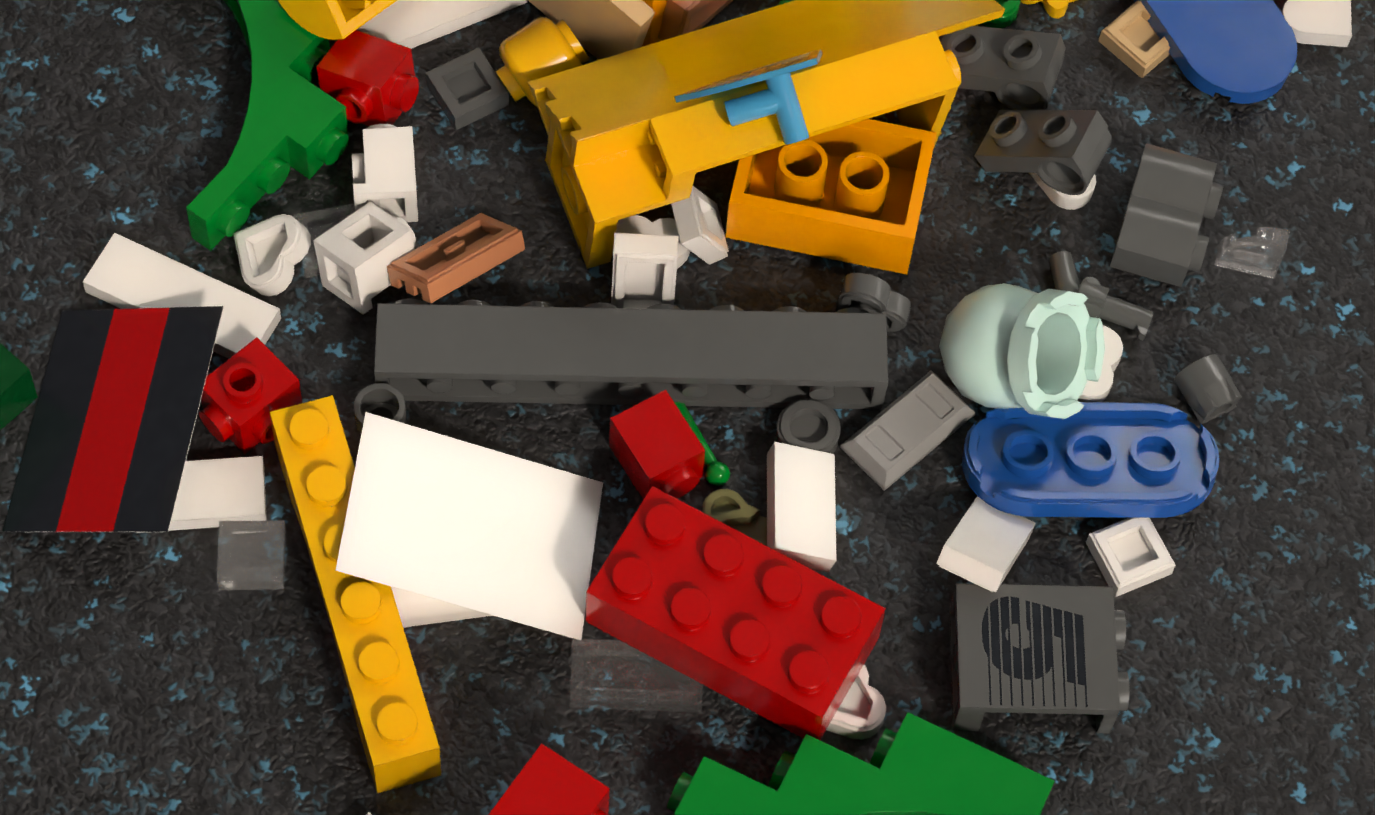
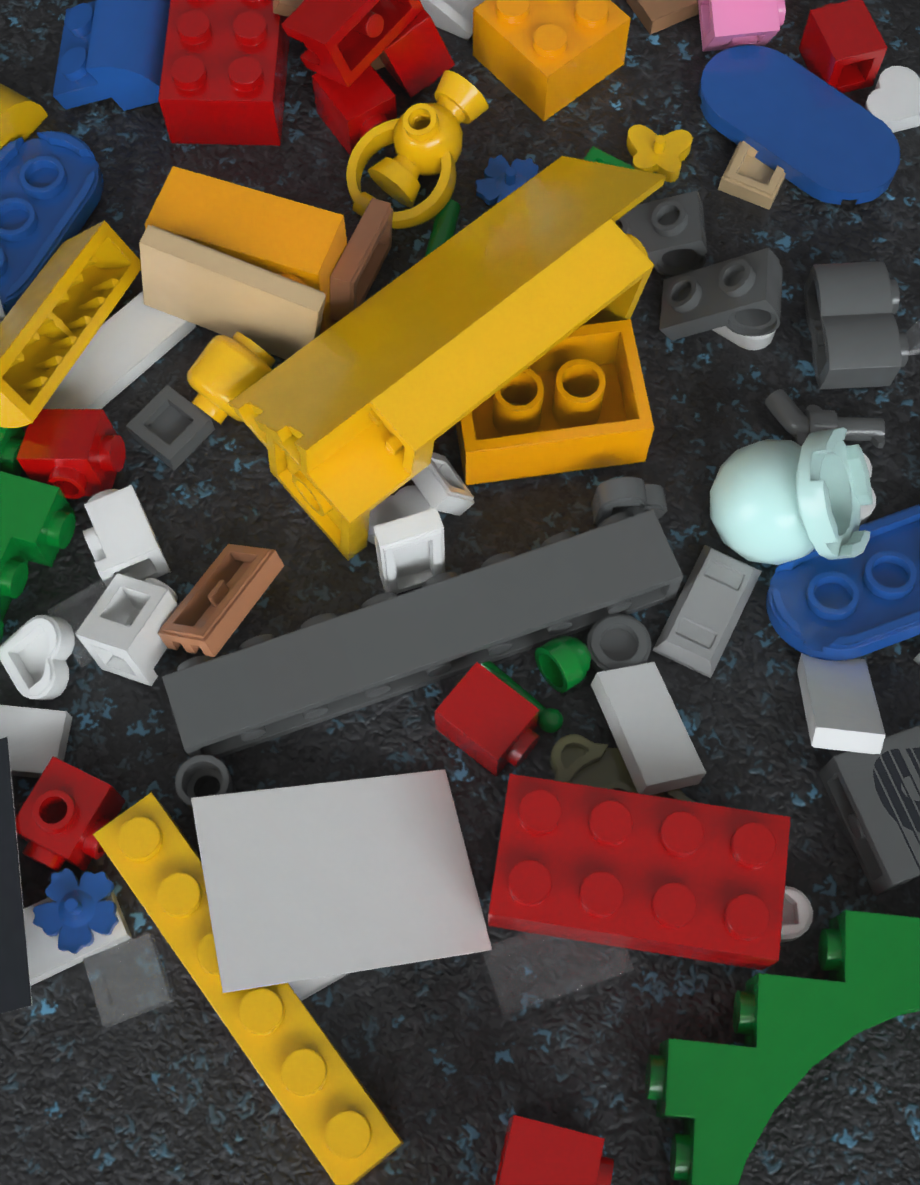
camera: 15 degrees left, 5 degrees up
(230, 476) = (77, 909): none -> blue plant
(750, 425) = (563, 662): none -> green hinge
(777, 99) = (493, 335): dark azure shield -> none

